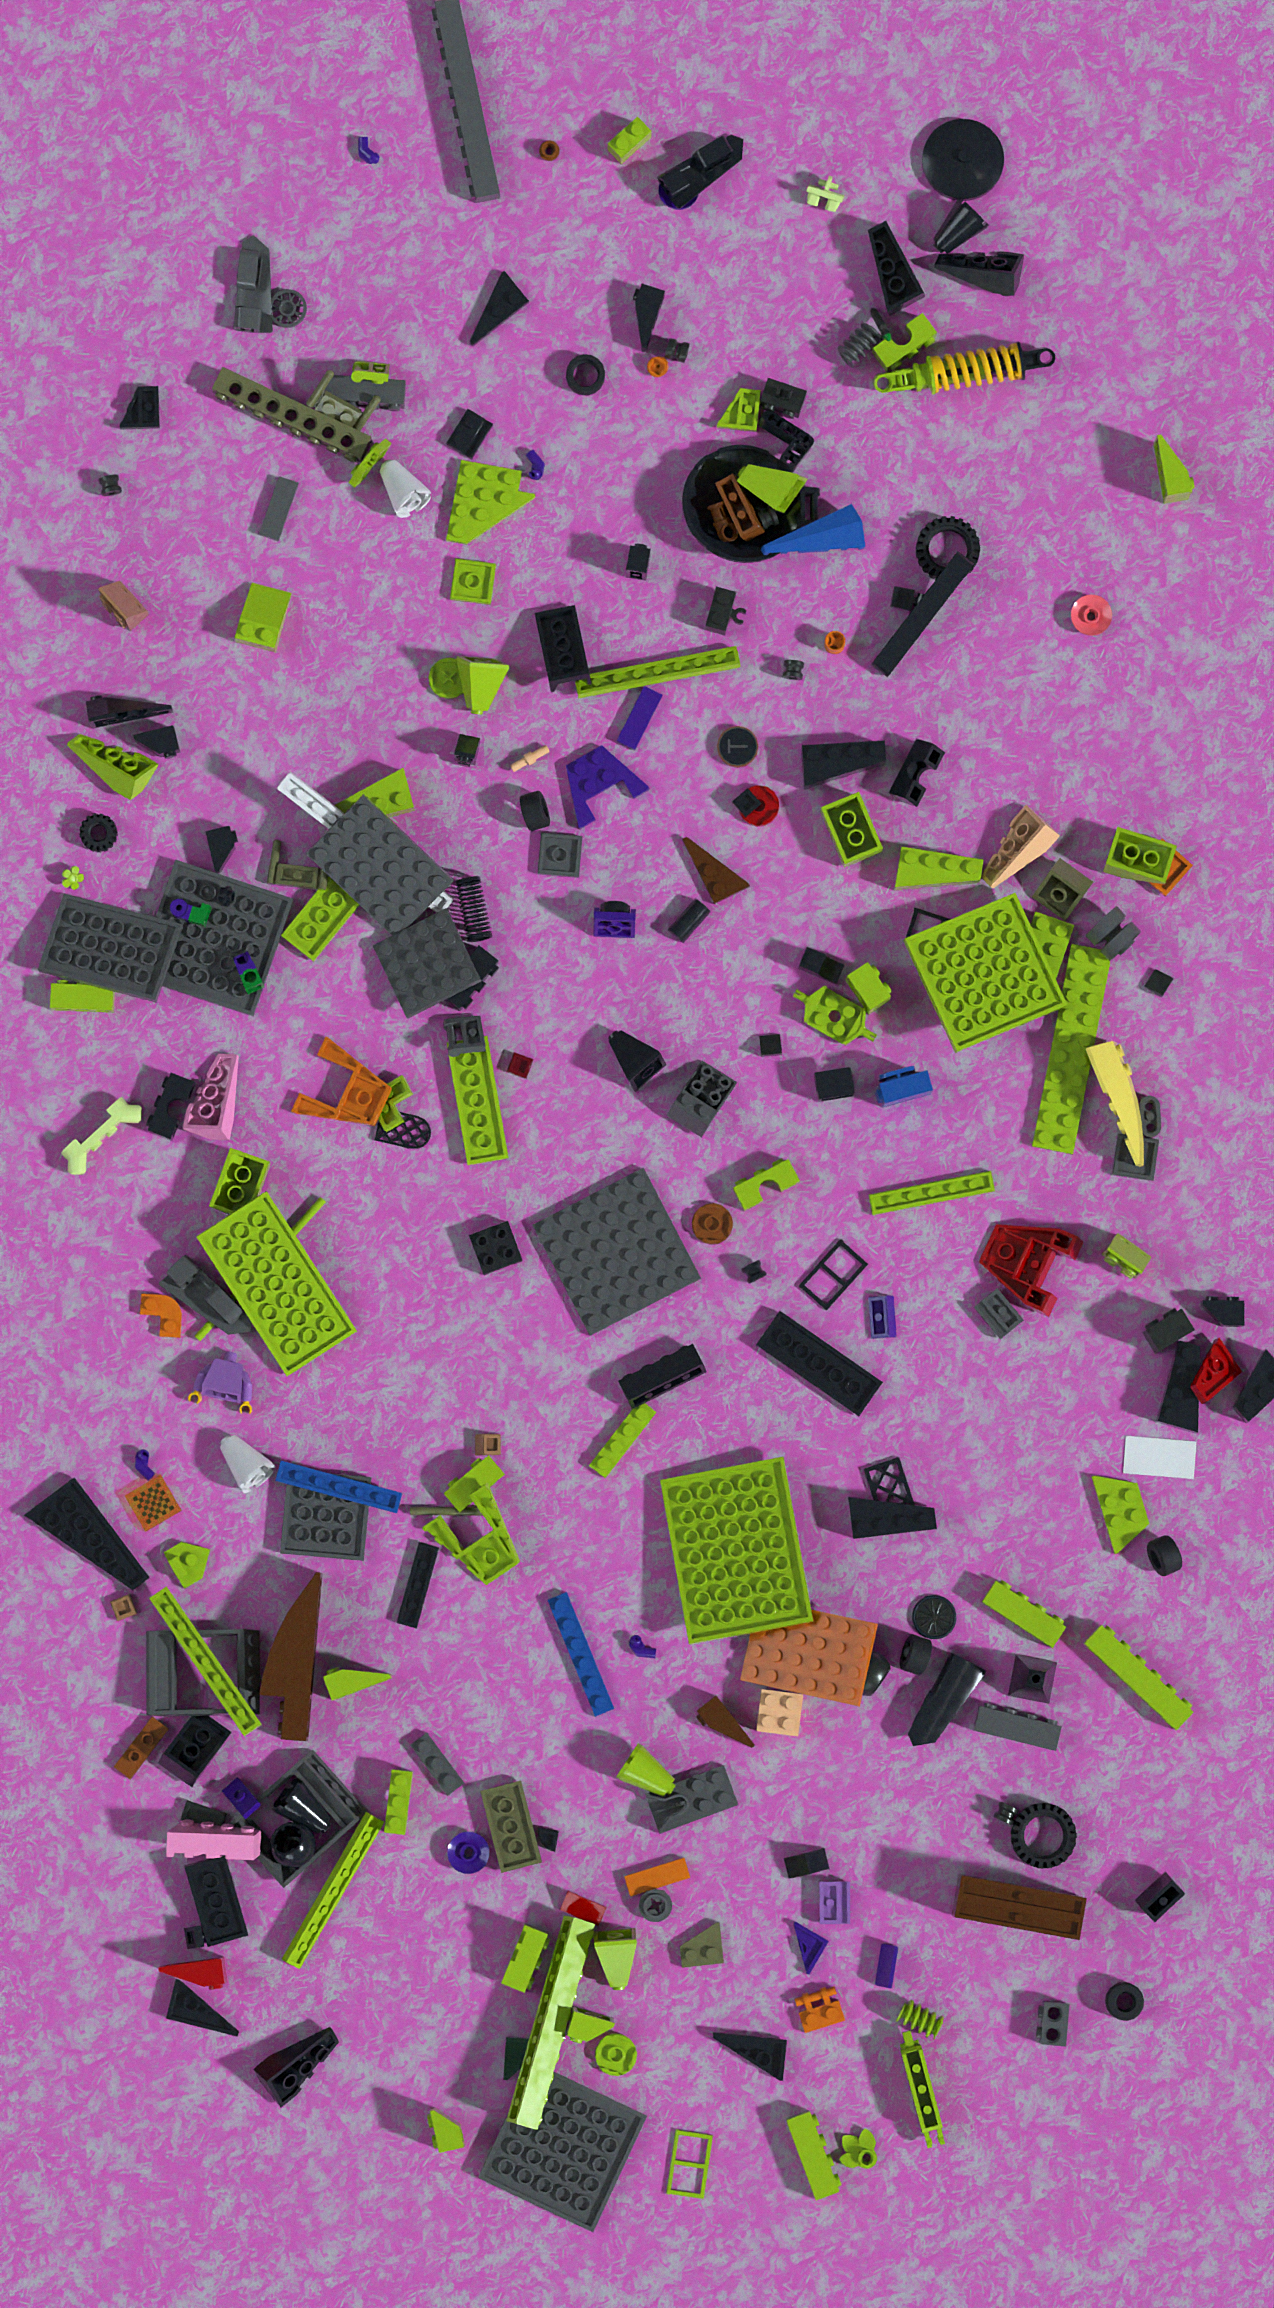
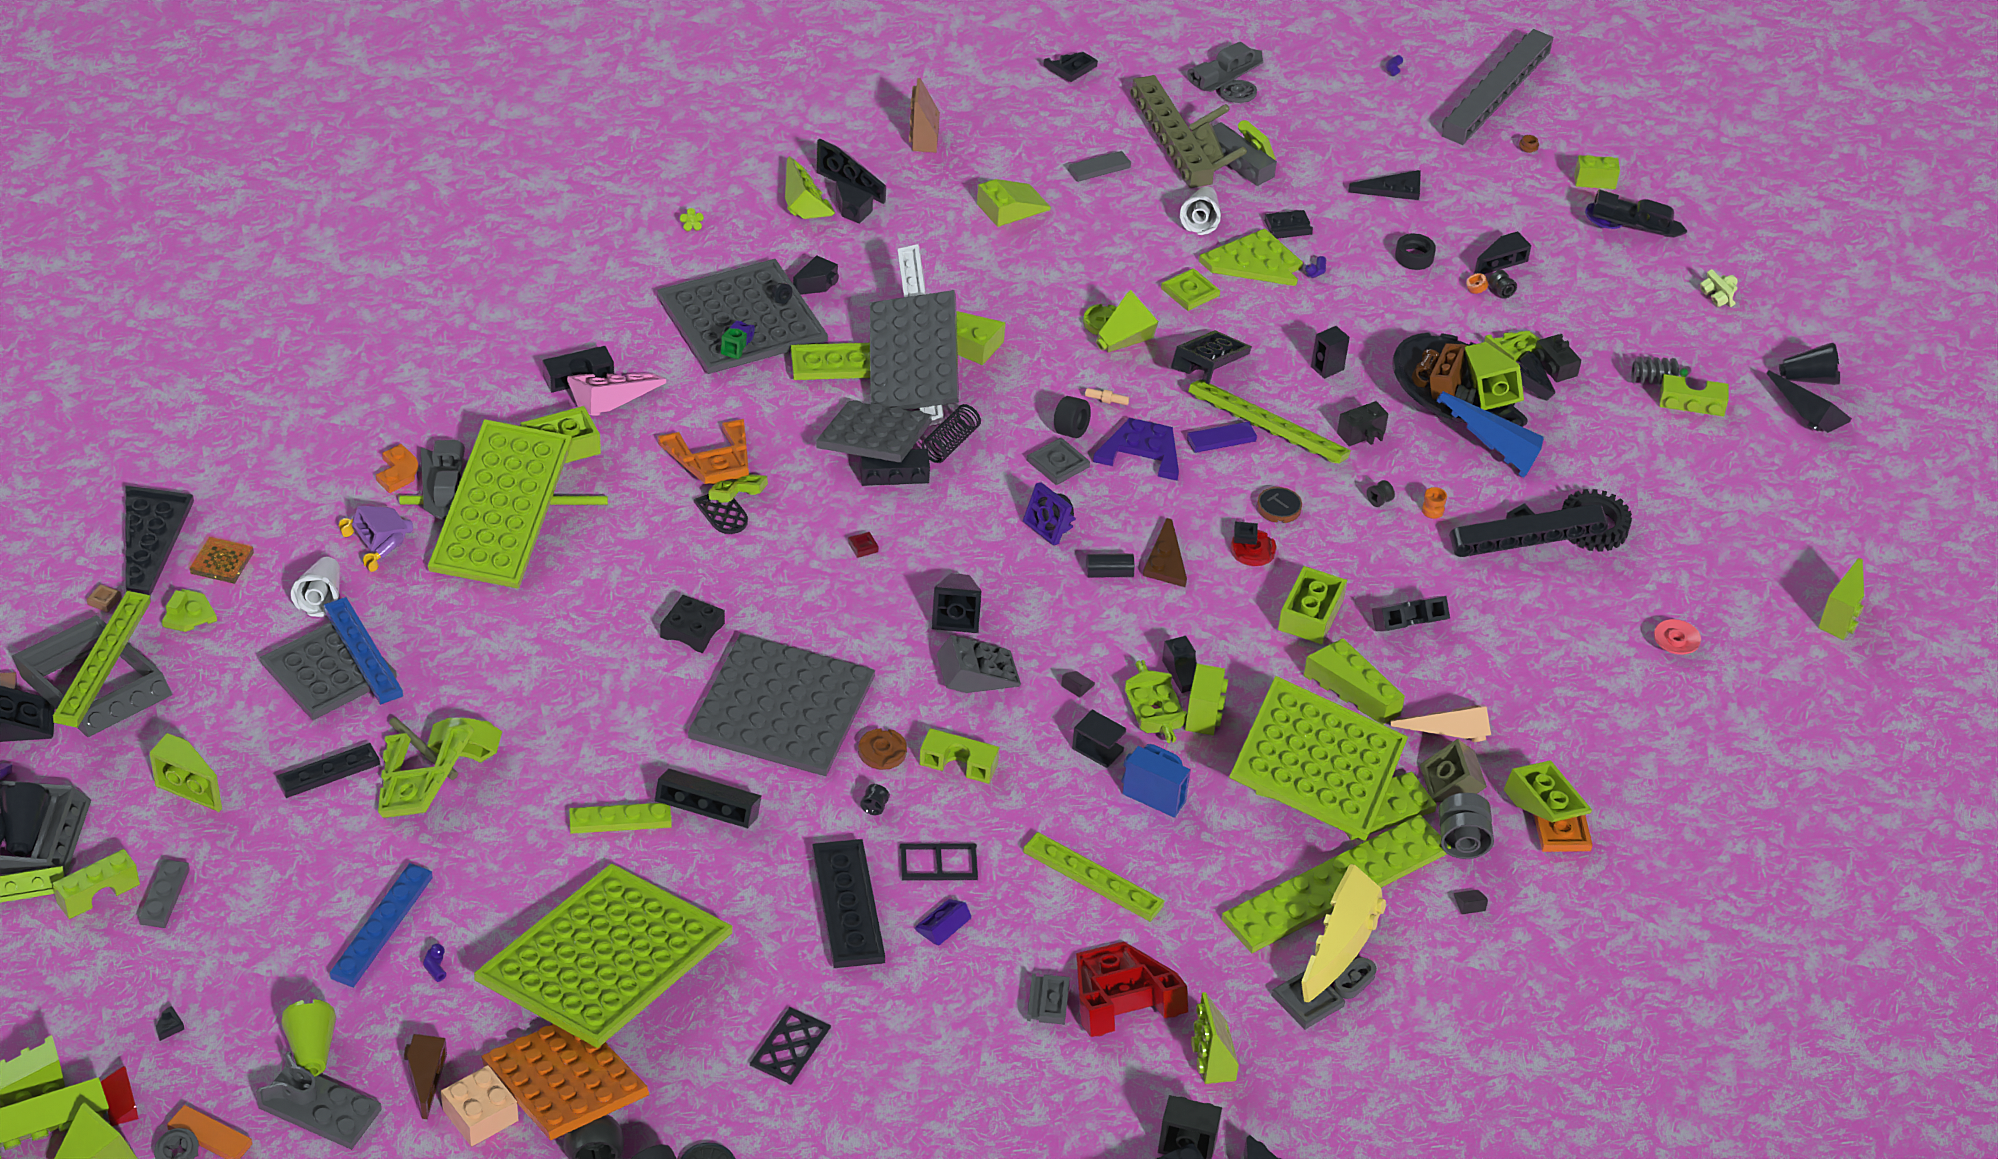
camera: 45 degrees right, 40 degrees down
(80, 998) = (605, 274): lime brick -> none
(104, 844) = (743, 213): black tyre -> none
(110, 485) = (999, 78): pearl dark grey wheel -> none
(110, 948) = (662, 258): dark grey plate -> none
(120, 1113) = (480, 341): yellowish green plate -> none
(141, 1464) = (251, 531): dark purple arm -> none
(190, 913) = (744, 283): leg -> none
(292, 1663) = (183, 707): reddish brown slope -> none
(294, 875) = (847, 326): olive plate -> none
(375, 454) = (1194, 175): lime plate -> none
(460, 1861) = (93, 968): dark purple dish -> none
(466, 750) = (1065, 353): black slope -> none
(471, 1035) = (845, 488): dark grey plate -> none
(478, 1106) = (801, 535): lime plate -> none
(488, 1444) = (514, 733): medium nougat slope -> none
(511, 1826) = (152, 984): olive plate -> none
(838, 760) = (1351, 560): black wedge -> none
(881, 1518) = (763, 1051): black wedge -> none
(895, 274) = (1730, 353): black wedge -> none
(963, 159) = (1861, 344): black dish -> none
(965, 369) = (1706, 426): piece -> none

